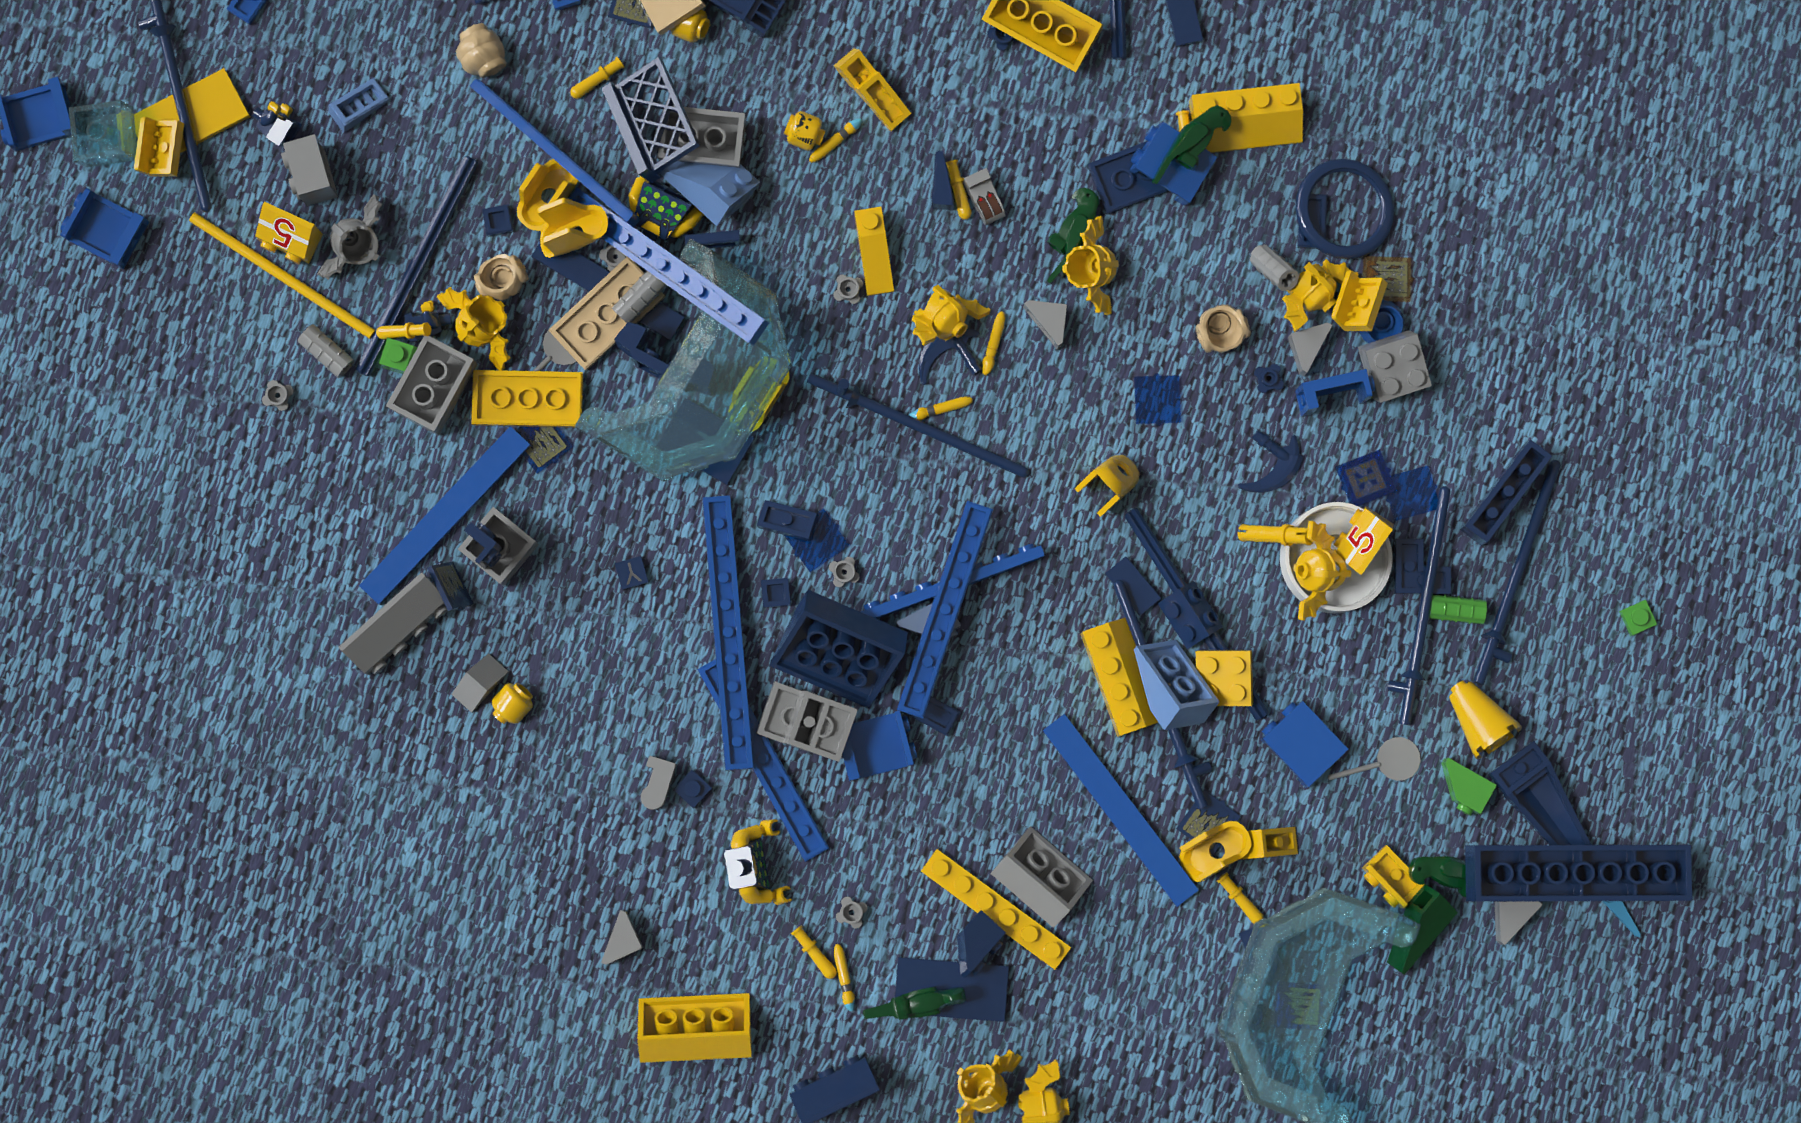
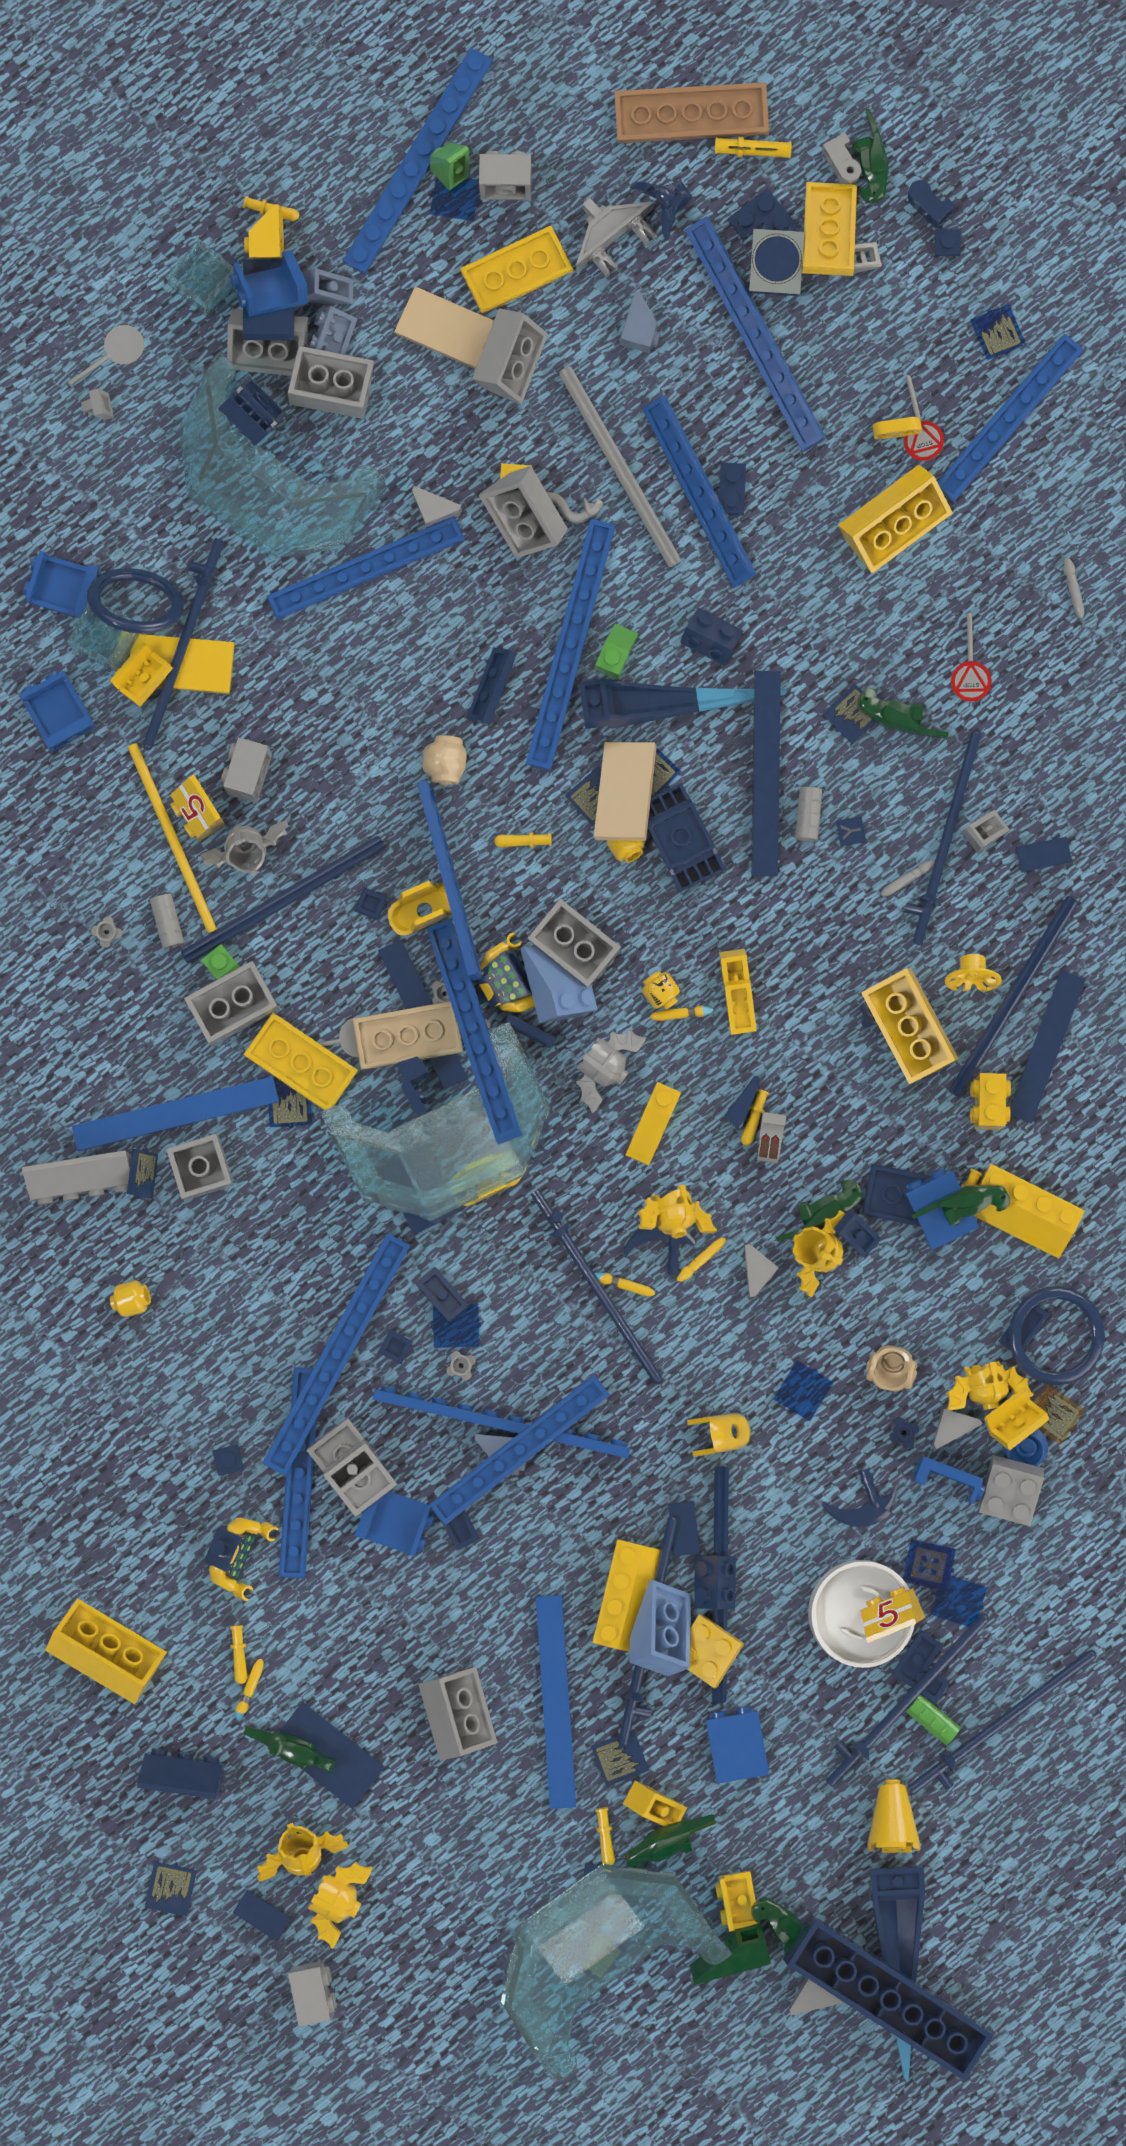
camera: 45 degrees right, 0 degrees up
(118, 106) = (131, 626): none -> dark blue wedge
(277, 126) = (244, 715): dark blue piece -> none
(356, 117) = (301, 749): medium blue slope -> none
(408, 330) = (241, 949): yellow piece -> none
(433, 318) = (260, 951): dark blue piece -> none
(479, 322) = (301, 978): yellow helmet -> none
(479, 682) = (116, 1264): light grey slope -> none
(485, 537) = (191, 1155): dark blue bracket -> none
(501, 277) = (341, 952): tan hair -> none
(561, 218) = (419, 938): yellow piece -> none
(623, 939) = (95, 1544): light grey slope -> none
(629, 124) = (522, 905): fence -> none
(631, 573) = (292, 1256): dark blue tile -> none
(638, 297) = (437, 1041): light grey axle -> none
(656, 792) = (205, 1438): light grey leg -> none
(799, 226) = (606, 1065): none -> light grey helmet
(839, 649) = (415, 1426): dark blue slope -> none
(843, 283) = (605, 1140): light grey plate -> none
(847, 905) = (281, 1641): light grey plate -> none
(975, 942) = (371, 1730): dark blue slope -> none
(1002, 912) = (404, 1715): yellow plate -> none
(1115, 230) = (857, 1233): none -> dark blue plate
(1155, 42) = (990, 1101): none -> yellow brick
(1196, 854) = (591, 1784): yellow piece -> none
(1274, 267) = (965, 1347): light grey axle -> none
(1286, 534) = (830, 1569): yellow pin -> none
(1297, 866) = (666, 1841): none -> dark green animal
(1318, 571) = (836, 1615): yellow helmet -> none
(1396, 758) = (804, 1808): light grey piece -> none
(1467, 787) = (845, 1868): bright green slope -> none
(1505, 492) = (1034, 1651): dark blue brick -> none
(1638, 617) = (1076, 1823): bright green plate -> none

